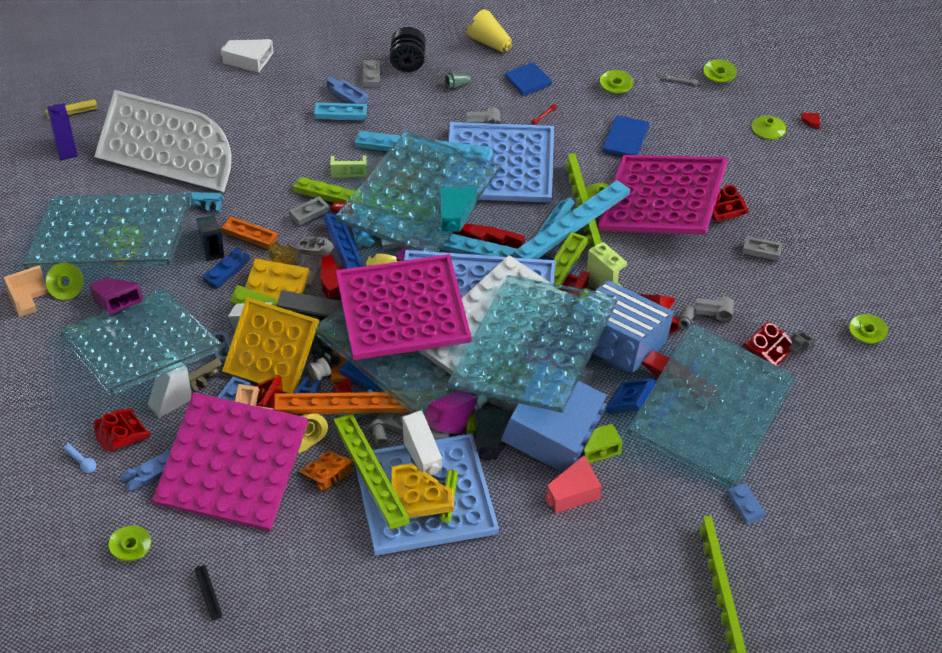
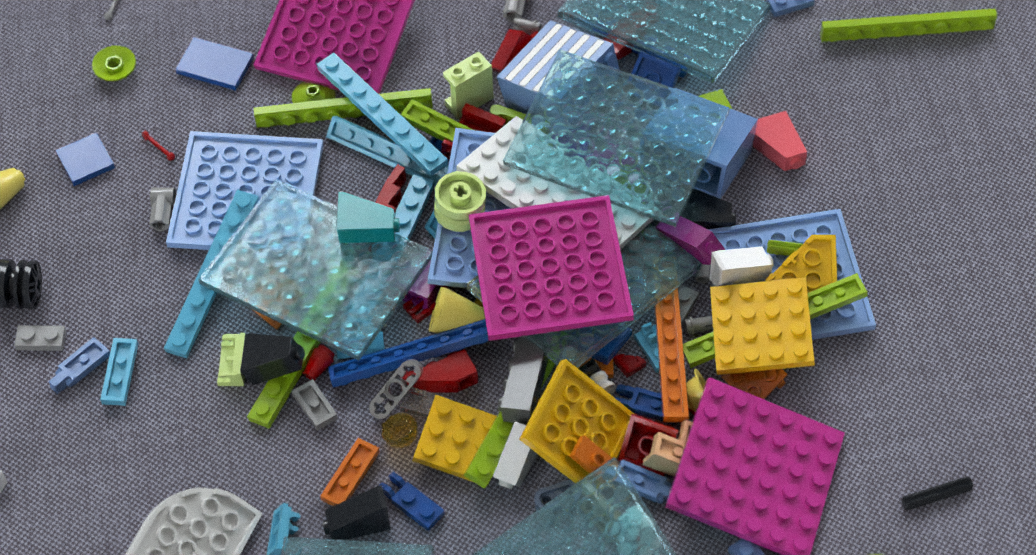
camera: 85 degrees left, 10 degrees up
(244, 359) = (589, 454): none -> orange plate
(345, 177) = (270, 357): none -> black slope
(360, 457) = (761, 326): none -> yellow plate
(455, 80) = (77, 236): sand green cone -> none
(472, 257) = (456, 198): none -> yellowish green wheel

